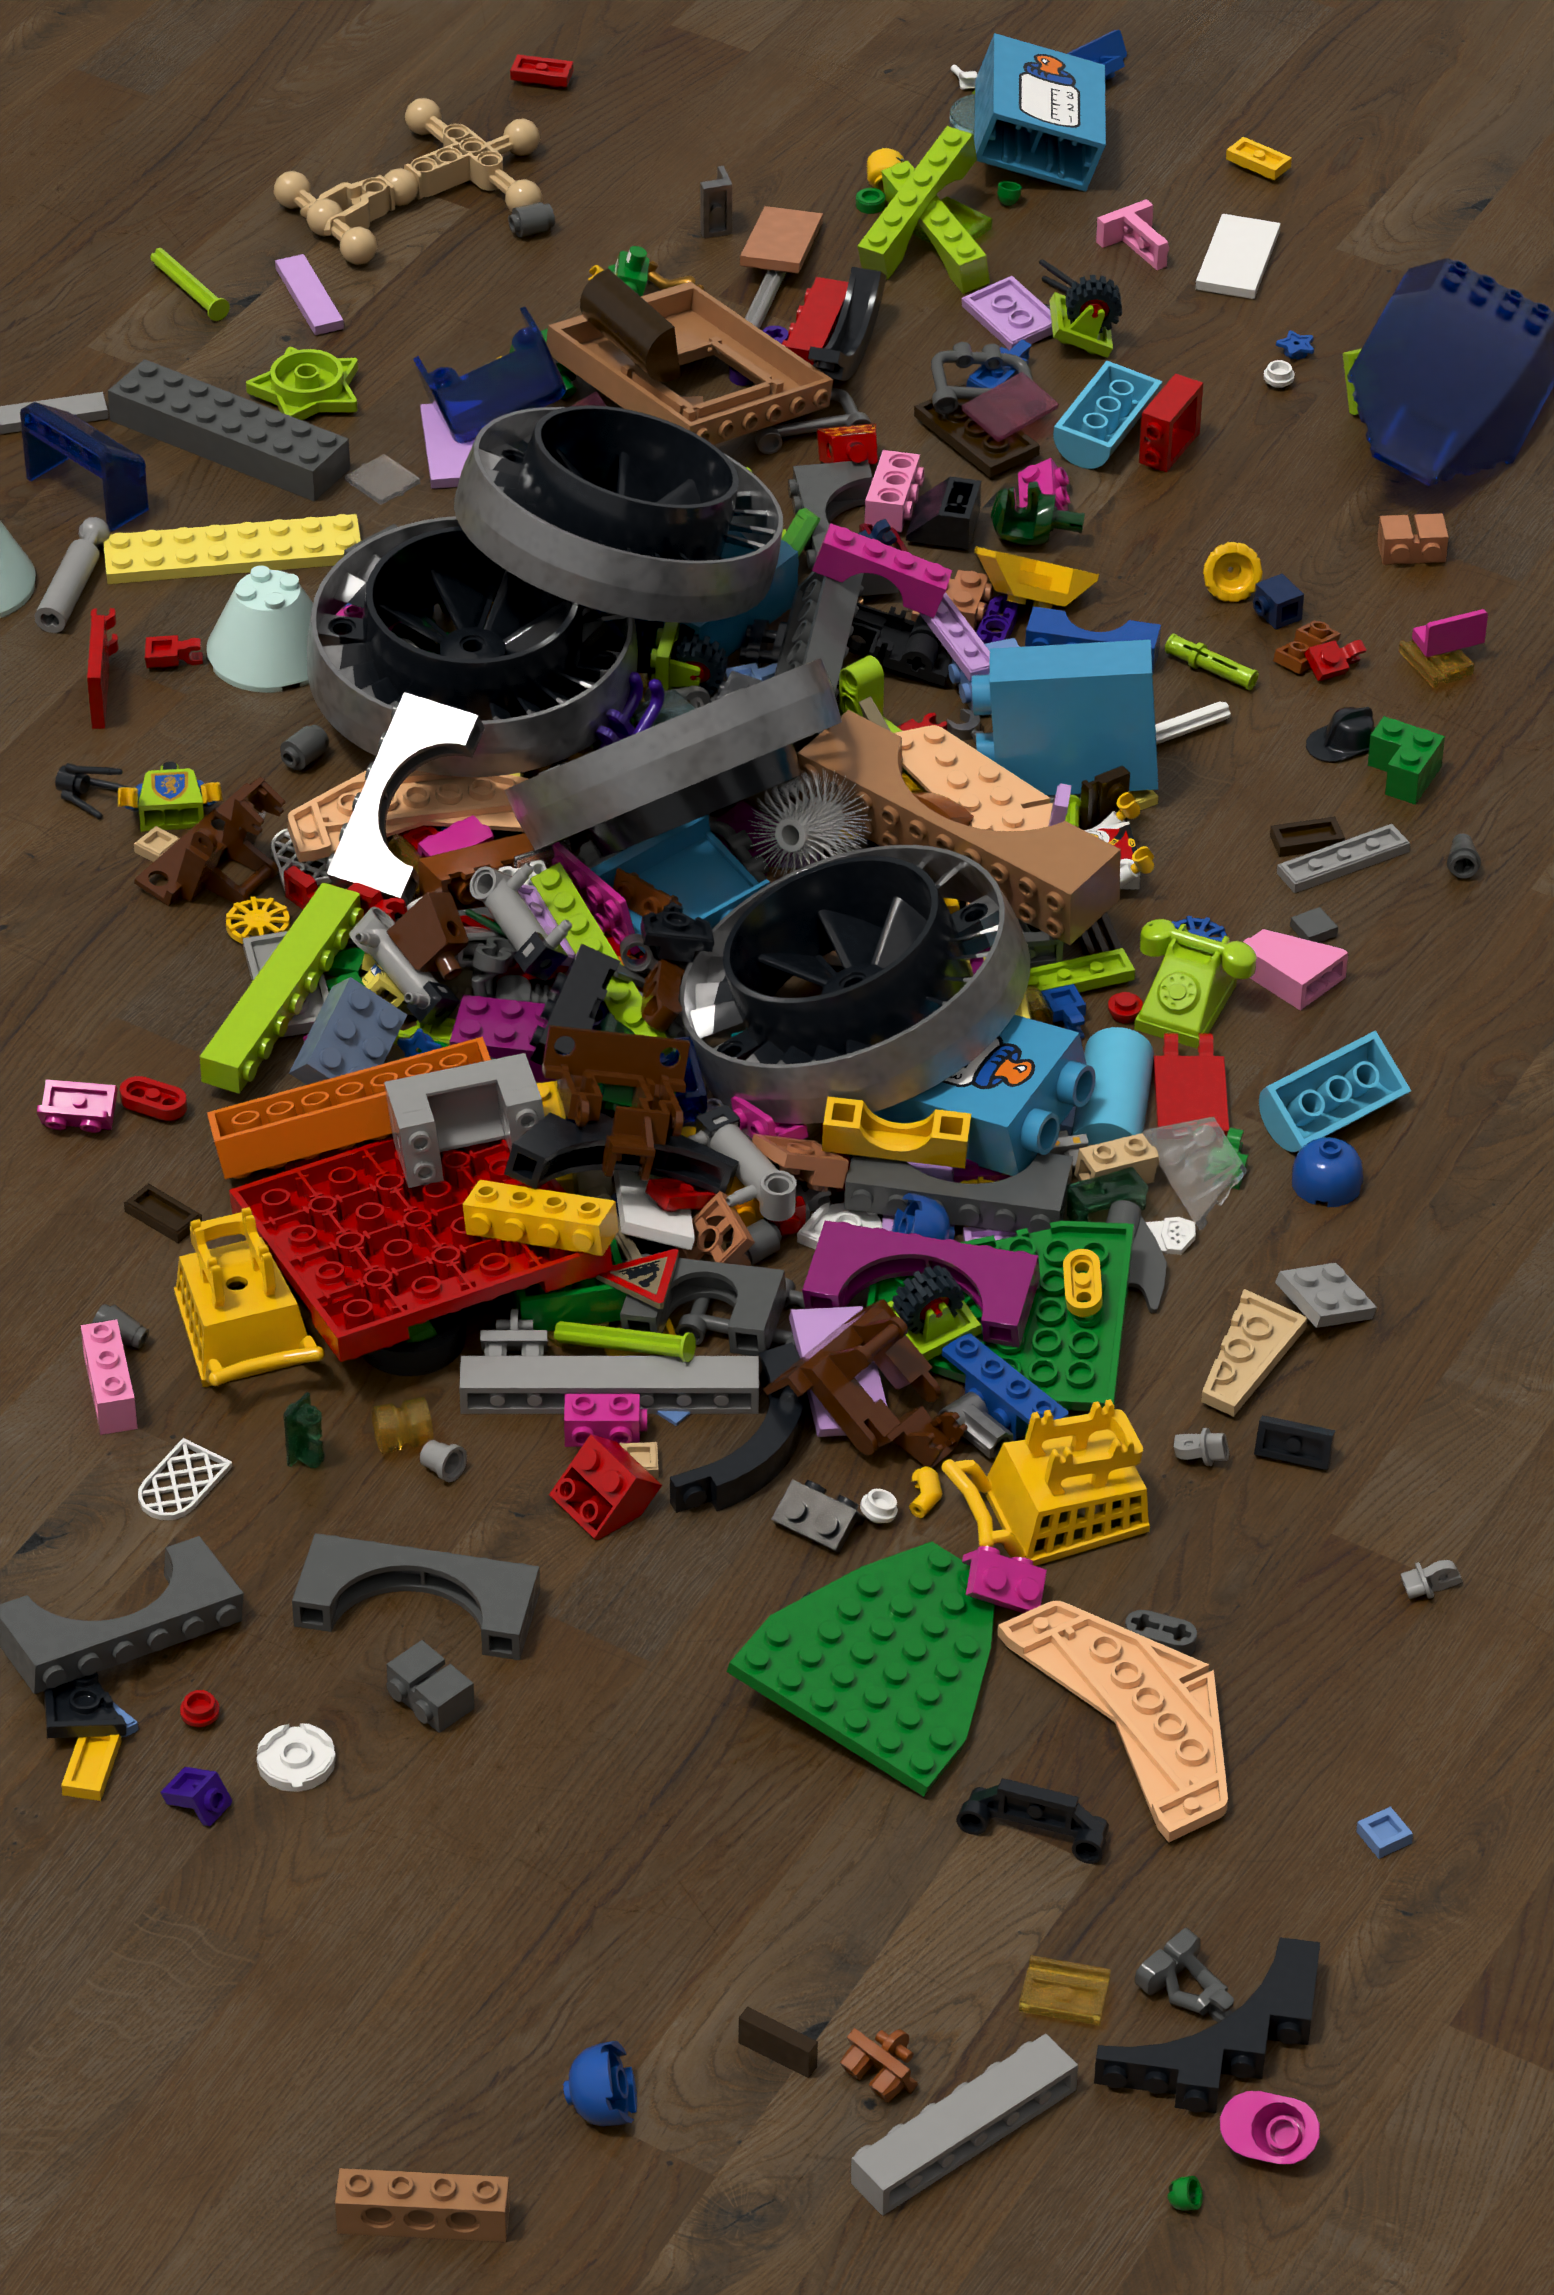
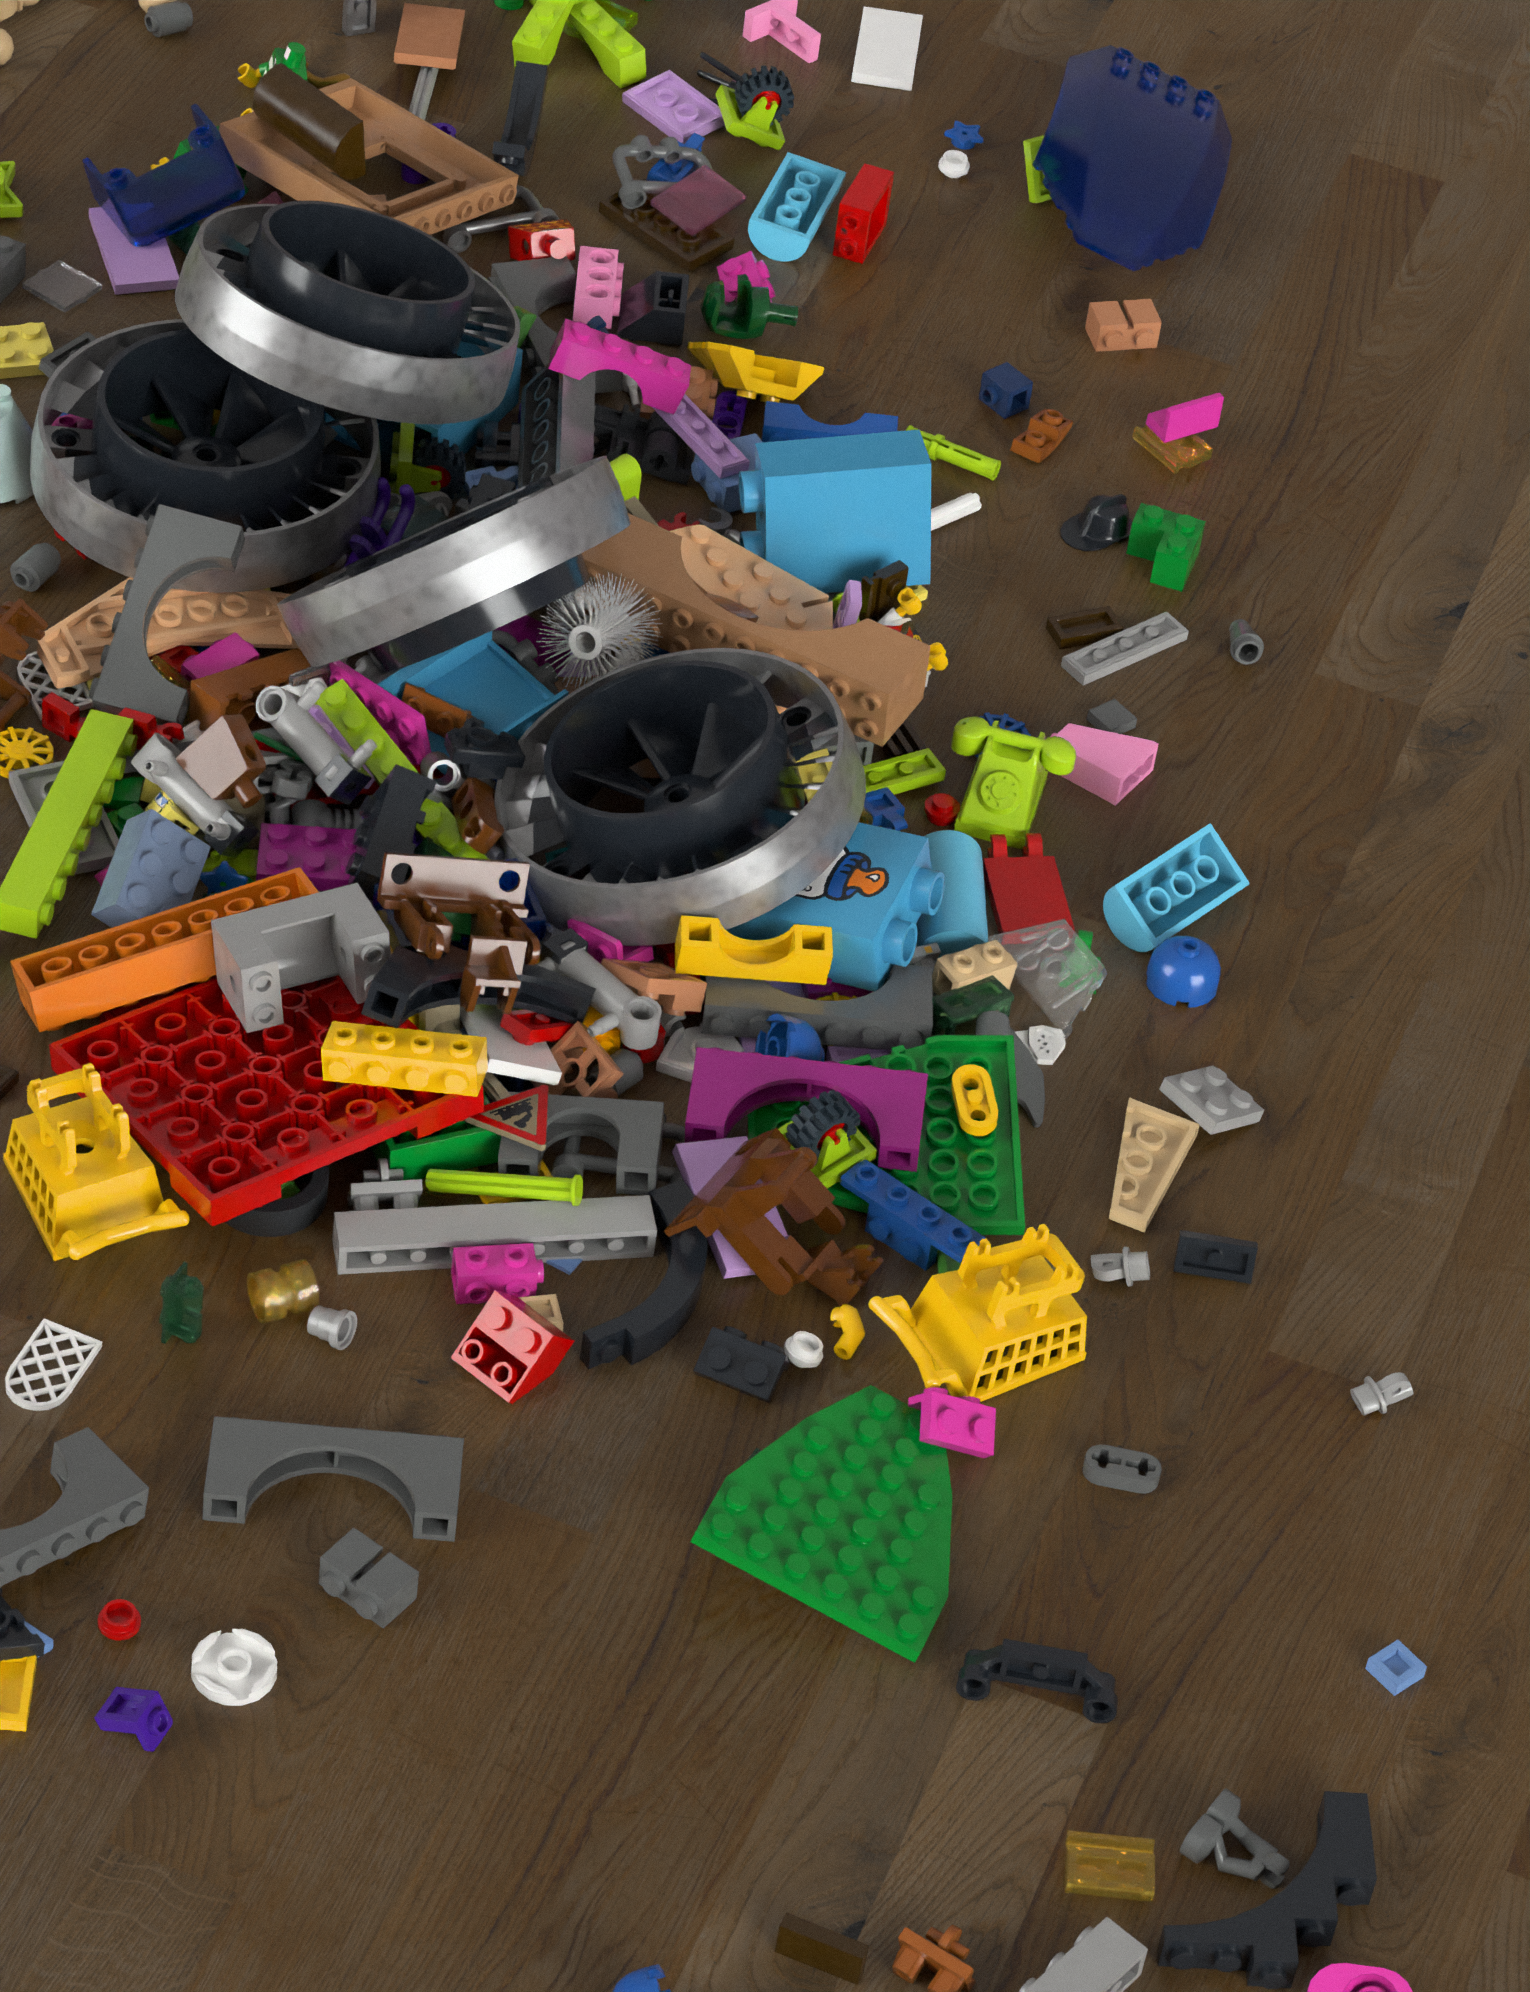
camera: 15 degrees left, 0 degrees up
(817, 317) = (484, 112): red brick -> none
(982, 1429) = (898, 1263): flat silver piece -> none
(1154, 1696) = (1132, 1538): light nougat wing -> none
(1238, 582) = (956, 361): yellow hair -> none
(1331, 661) = (1069, 449): red plate -> none

